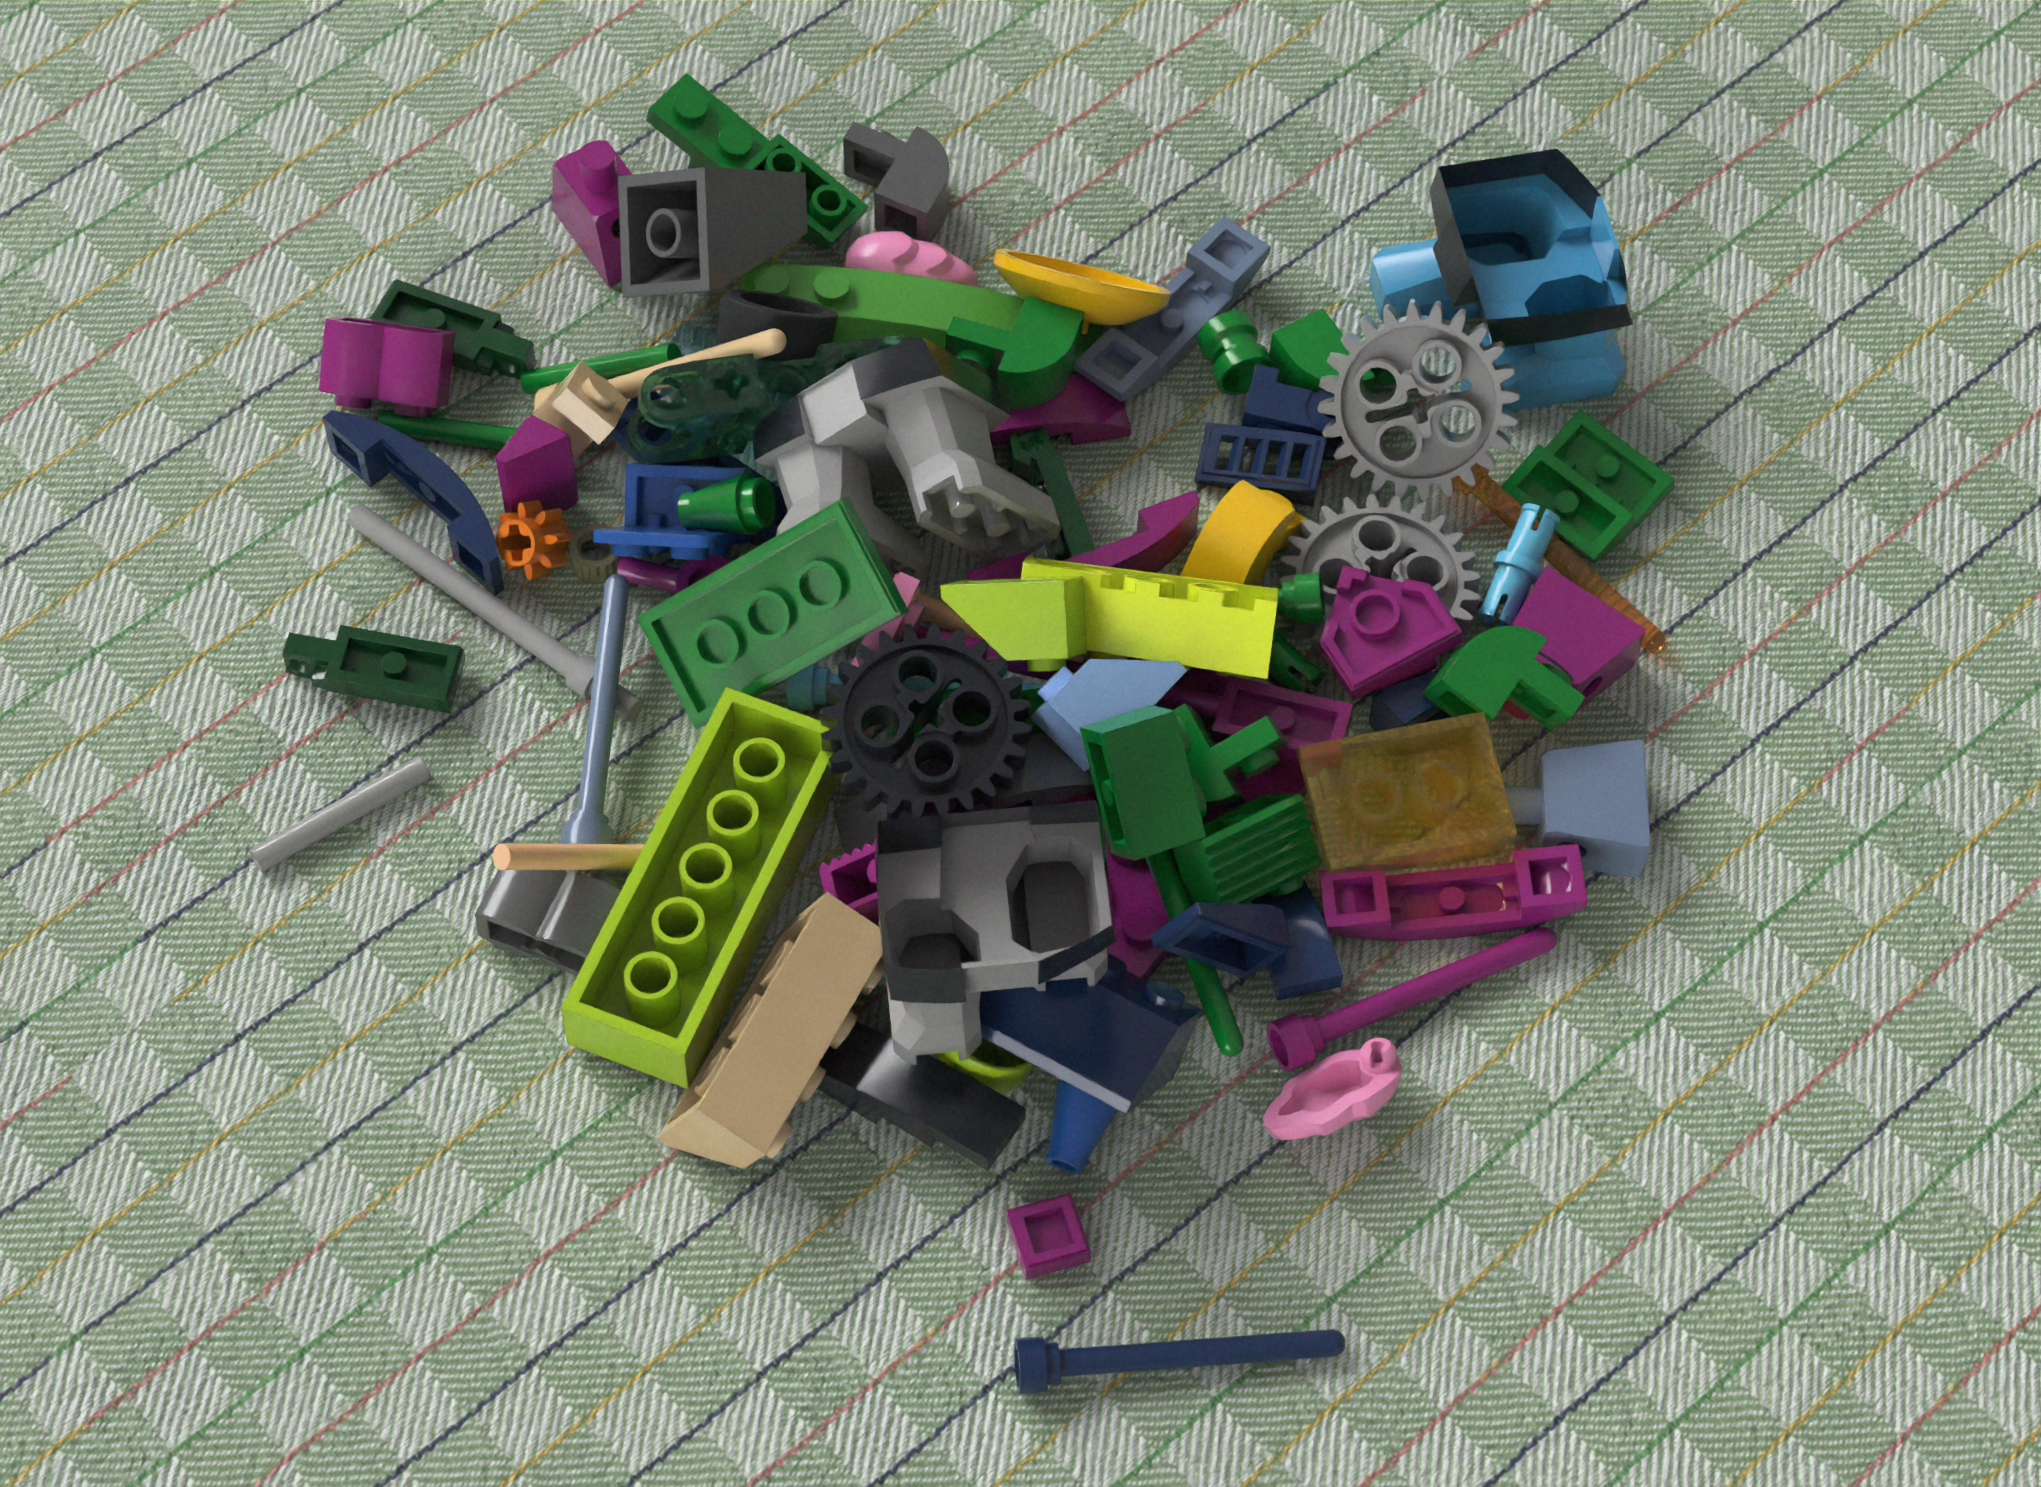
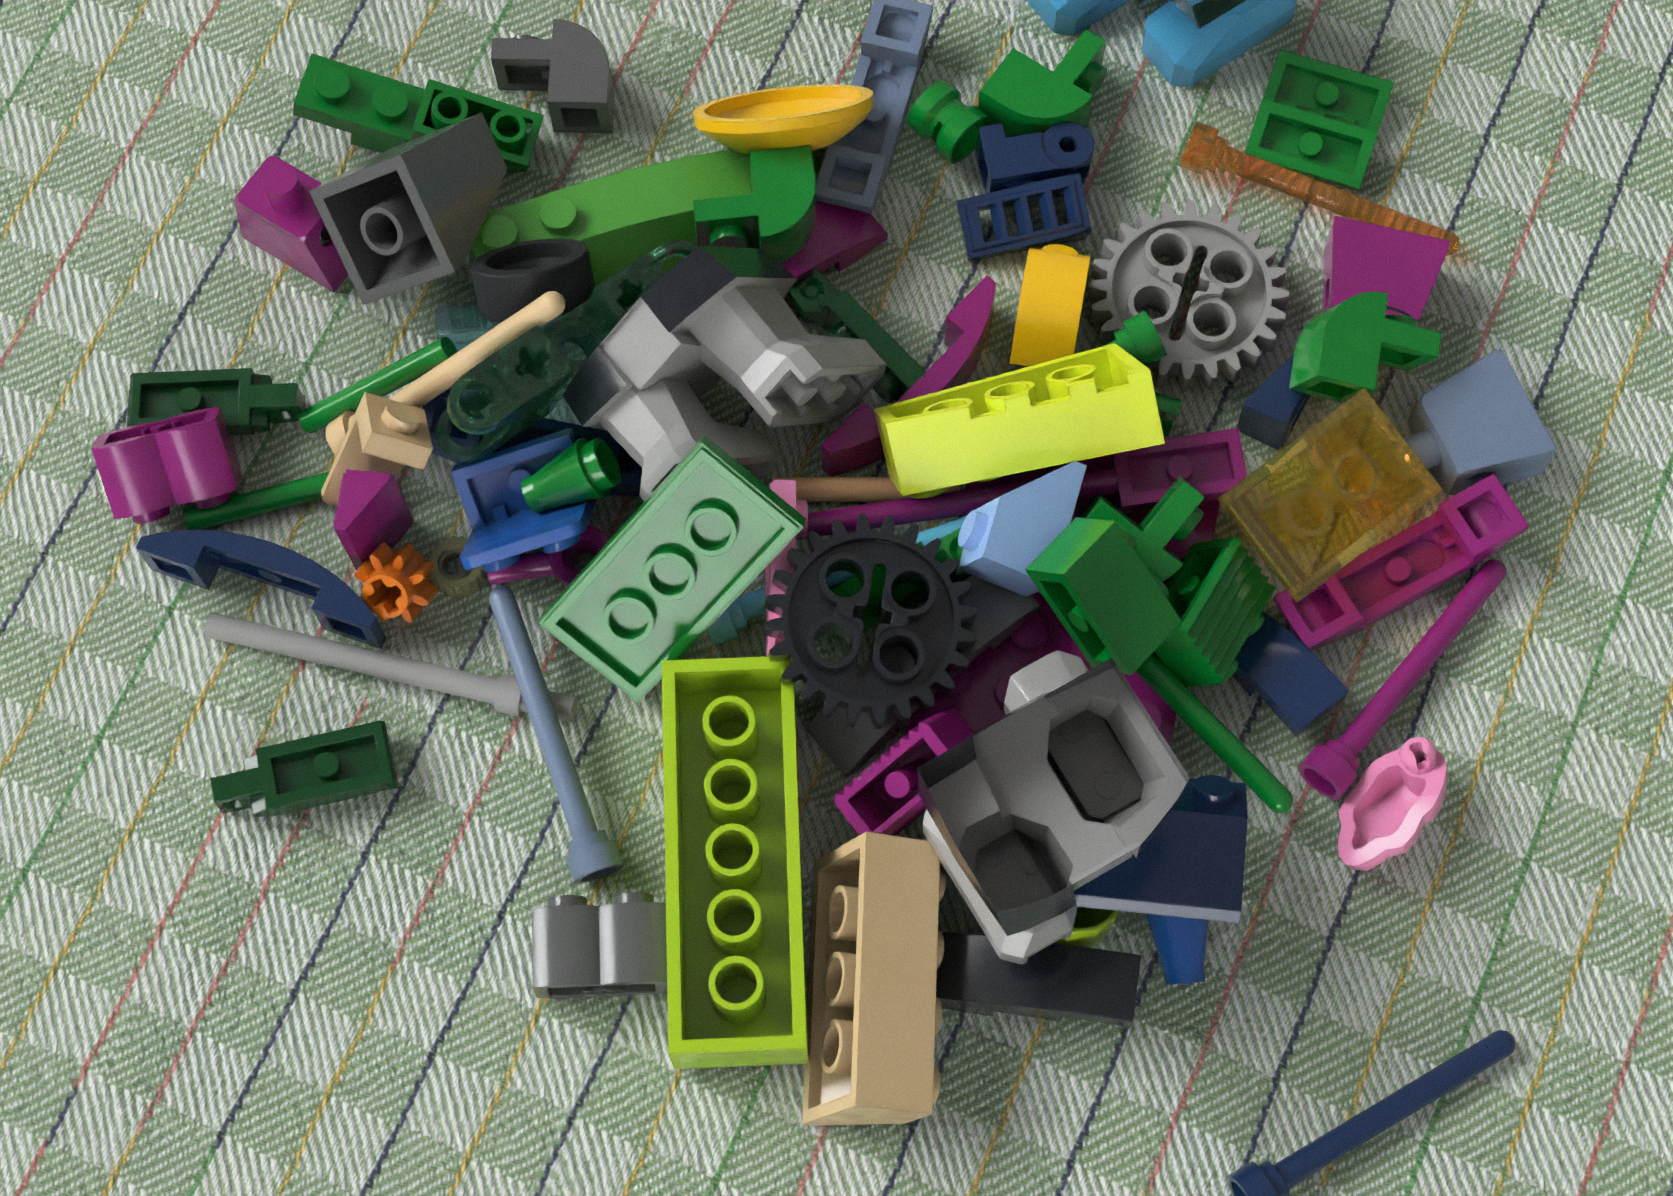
camera: 20 degrees left, 10 degrees up
(340, 814) = (345, 935): light grey bar -> none
(566, 856) = (600, 892): light nougat bar -> none
(903, 255) = (603, 153): bright pink arm -> none
(1024, 617) = (911, 476): lime slope -> none
(1048, 1236) = (1203, 1056): magenta tile -> none
(1227, 936) = (1242, 704): dark blue slope -> none
(1384, 631) = (1228, 342): magenta plate -> none
(1437, 452) = (1122, 65): light grey gear -> none
(1518, 566) = (1302, 225): medium azure pin -> none

